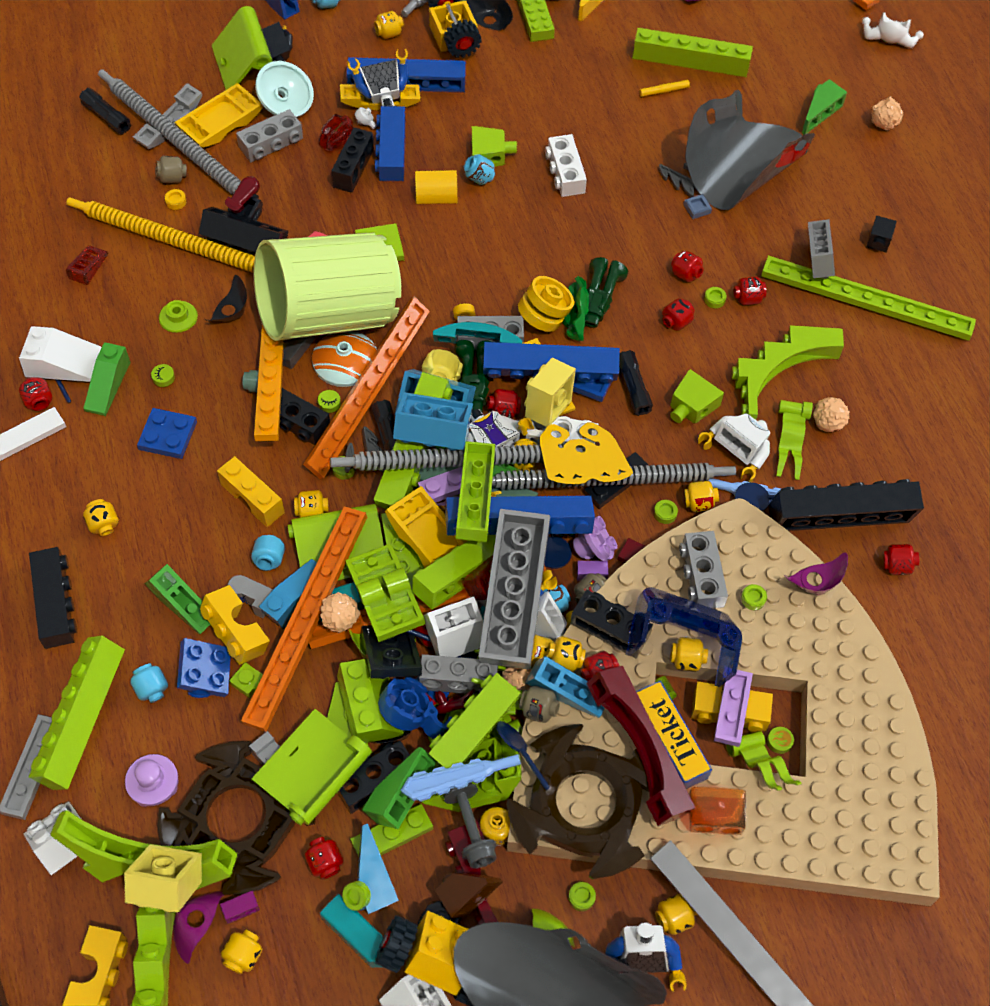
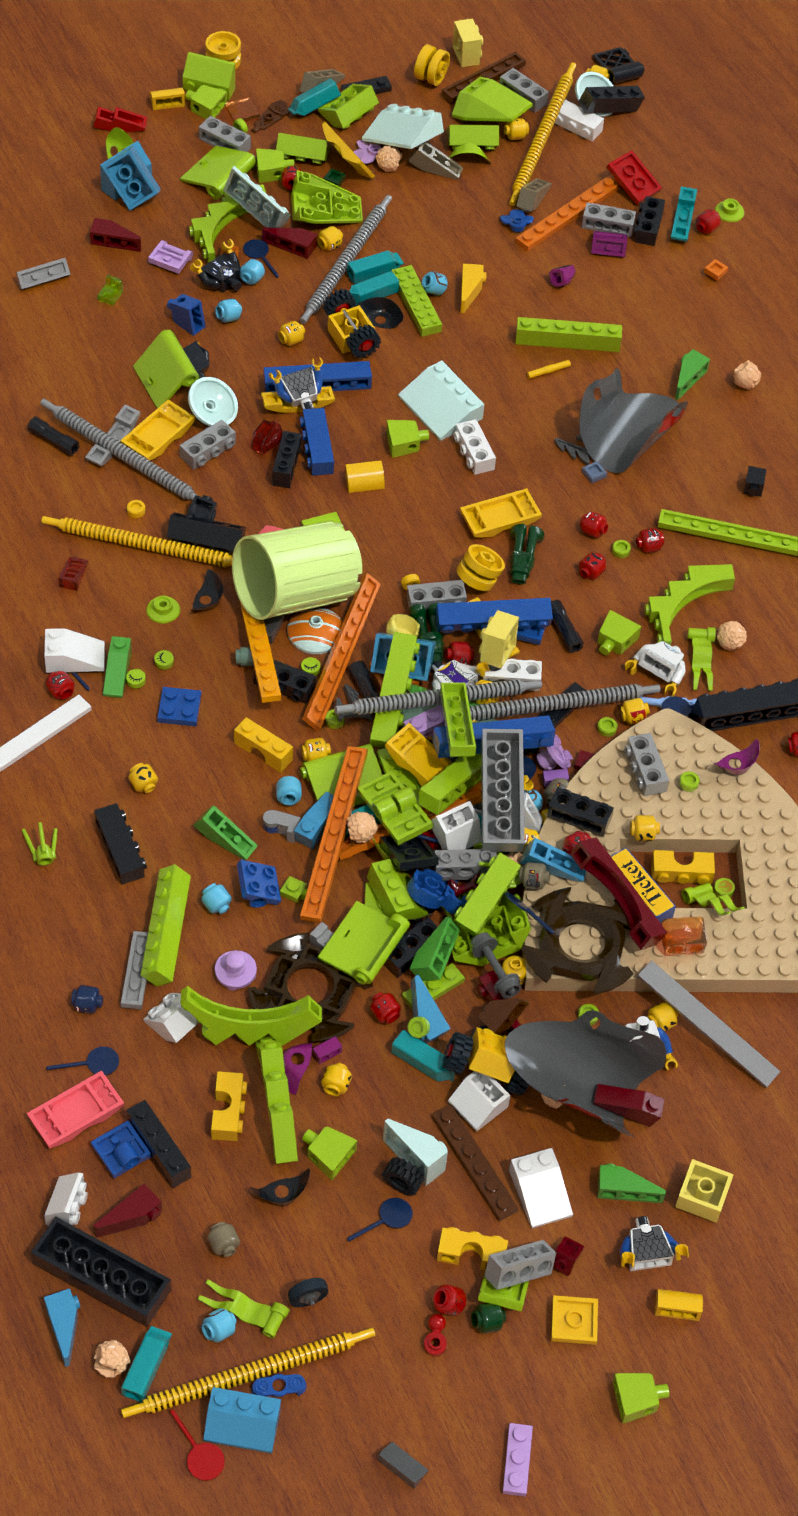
camera: 10 degrees left, 5 degrees down
(125, 394) = (135, 678): none -> lime tile
(163, 878) = (275, 1023): light yellow brick -> none
(170, 169) = (126, 483): dark tan head -> none
(242, 641) = (284, 859): yellow arch -> none
(247, 188) = (203, 495): dark red piece -> none
(365, 117) = (288, 420): white piece -> none
(432, 421) = (411, 670): dark azure slope -> none
(441, 780) = (469, 937): light blue sword -> none
(473, 329) = (426, 594): teal slope -> none
(474, 582) = (471, 788): clear red slope -> none
(479, 169) = (400, 457): medium azure head -> none
(538, 110) = (441, 400): none -> light aqua slope
(566, 653) = (550, 834): yellow head -> none
(576, 321) = (507, 581): green piece -> none
(581, 243) = (500, 513): none -> yellow slope
(587, 464) = (541, 693): yellow piece -> none
(660, 606) = (641, 798): clear blue windscreen -> none
(733, 709) = (684, 864): lavender plate -> none
(821, 249) = (705, 499): light grey brick -> none
(891, 31) = (741, 299): white piece -> none

